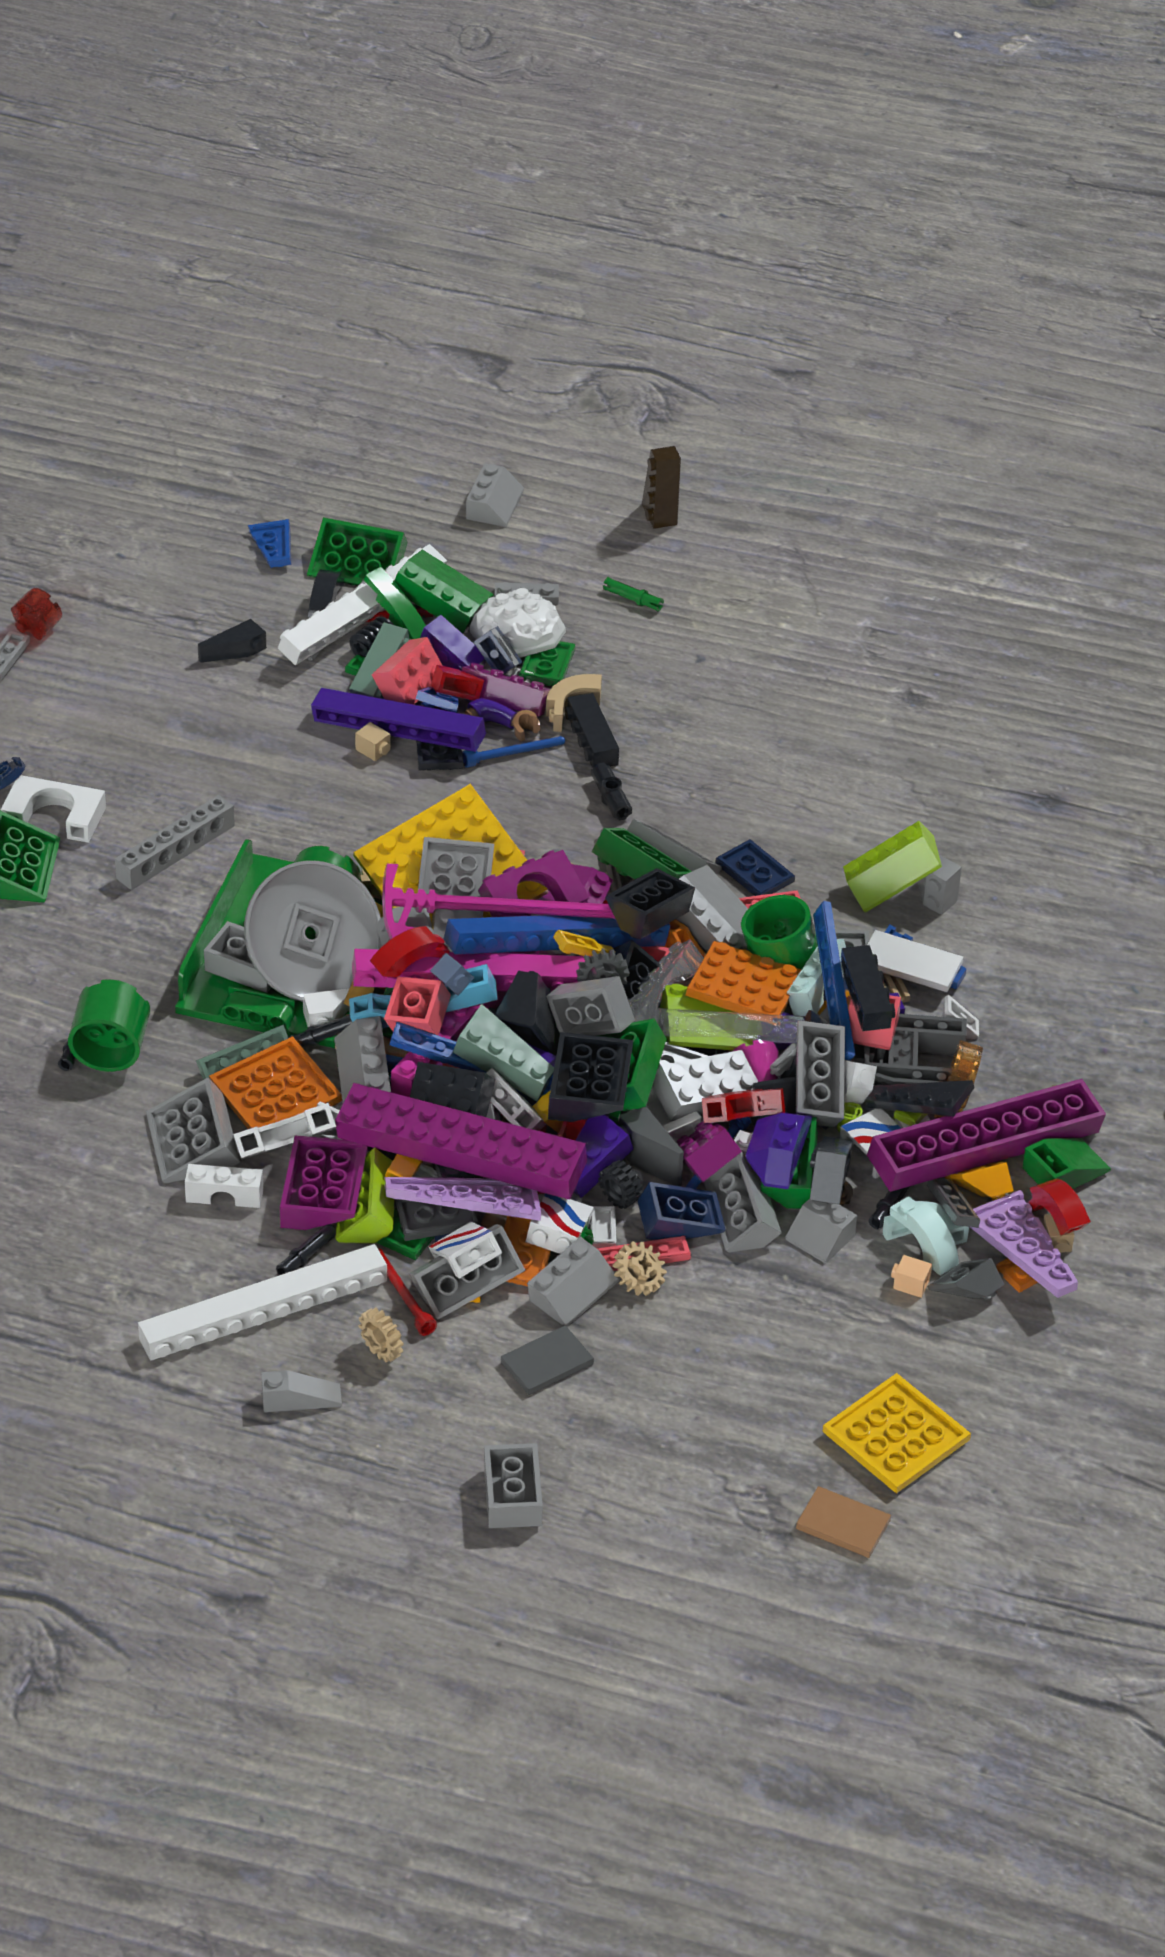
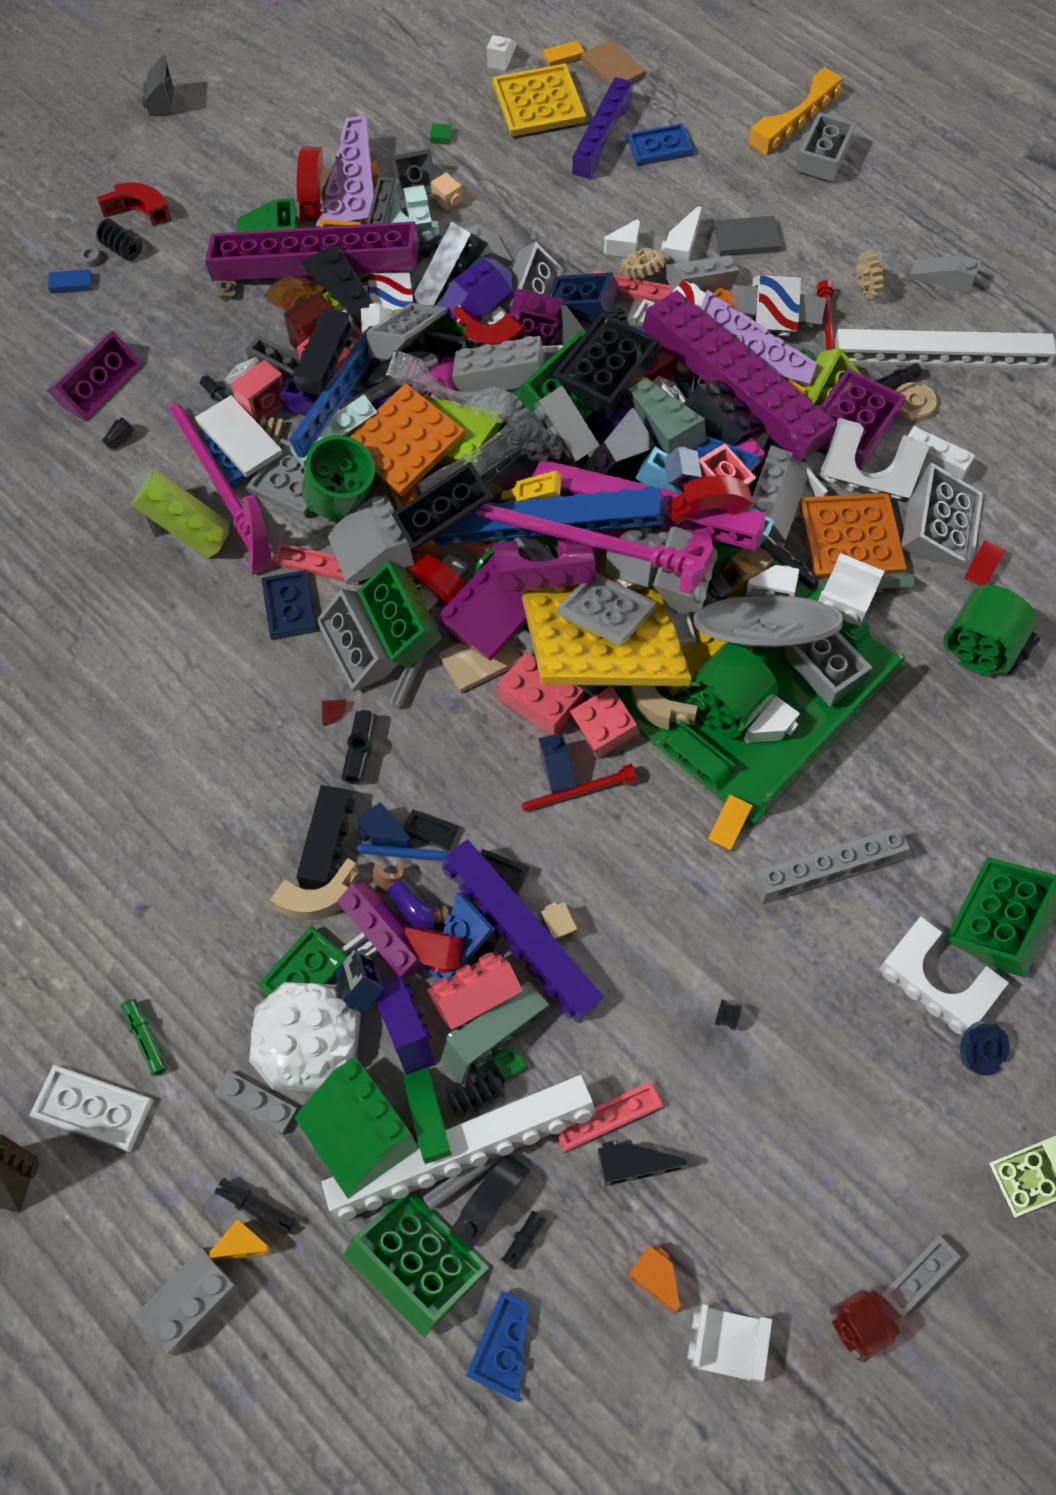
camera: 150 degrees left, 20 degrees up
(123, 592) = (730, 1344): none -> white panel
(135, 1112) = (984, 563): none -> red slope
(187, 597) = (656, 1277): none -> orange slope
(211, 735) = (728, 1014): none -> black wheel
(253, 1012) = (851, 588): none -> white panel
(261, 670) = (612, 1116): none -> coral tile
(270, 1245) = (919, 401): none -> tan tile
(273, 845) = (730, 822): none -> light orange tile
(291, 590) = (523, 1240): none -> black pin
(477, 528) = (239, 1243): none -> light orange slope
(485, 547) = (245, 1200): none -> black pin
(515, 768) = (430, 830): none -> black tile
(549, 749) = (381, 828): none -> dark blue slope
(591, 1494) = (773, 130): none -> light orange arch
(613, 1313) = (682, 238): none -> white slope
(638, 556) = (91, 1108): none -> white tile
(656, 813) = (332, 711): none -> clear red tile
(676, 1293) = (623, 240): none -> white slope
(716, 1437) = (659, 144): none -> blue tile
(797, 1433) = (592, 143): none -> dark purple arch
(814, 872) = (246, 520): none -> dark pink piece
(910, 1033) = (303, 317): none -> clear red brick
(914, 1514) = (563, 53): none -> light orange tile
(924, 990) = (259, 391): none -> coral brick
(972, 1000) = (216, 391): none -> black axle
(977, 1352) = (441, 133): none -> green tile
(990, 1479) = (500, 52): none -> white slope
(1027, 936) = (118, 433): none -> black cone
(1098, 970) = (95, 376): none -> magenta slope

